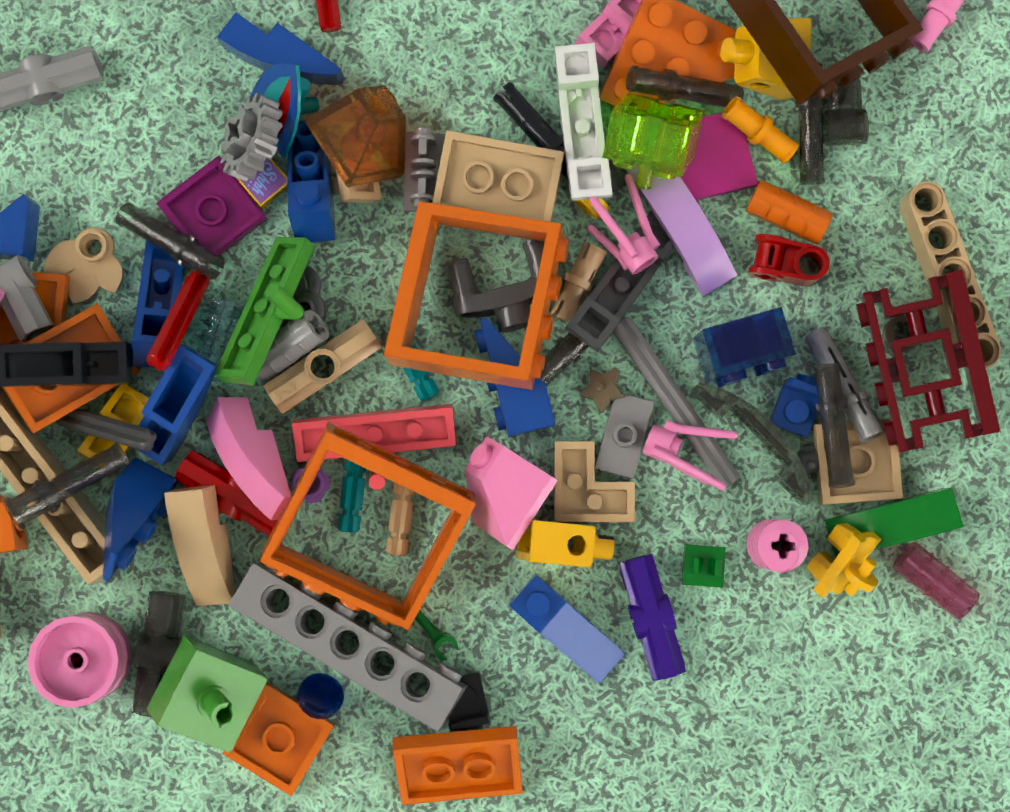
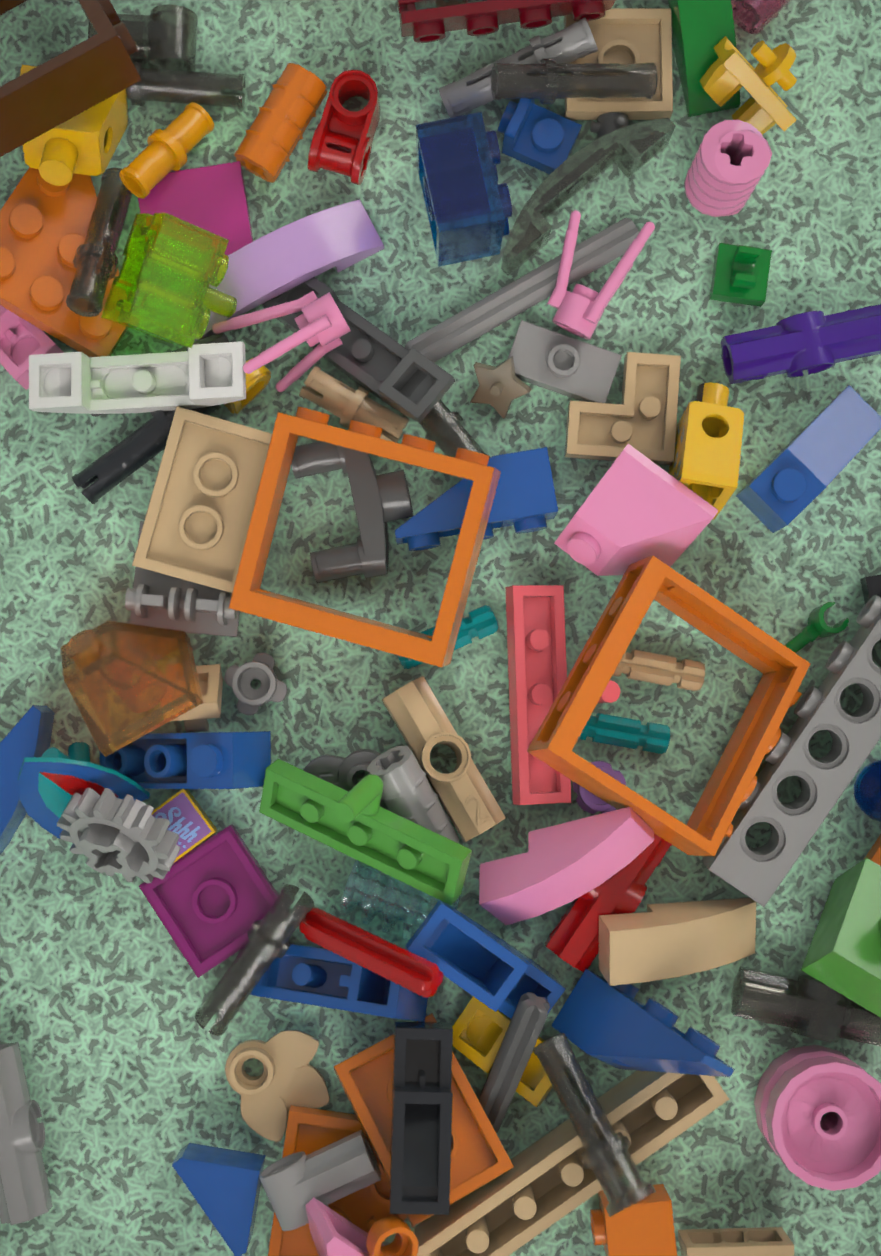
camera: 95 degrees left, 0 degrees up
(373, 216) = (241, 677): none -> light grey plate

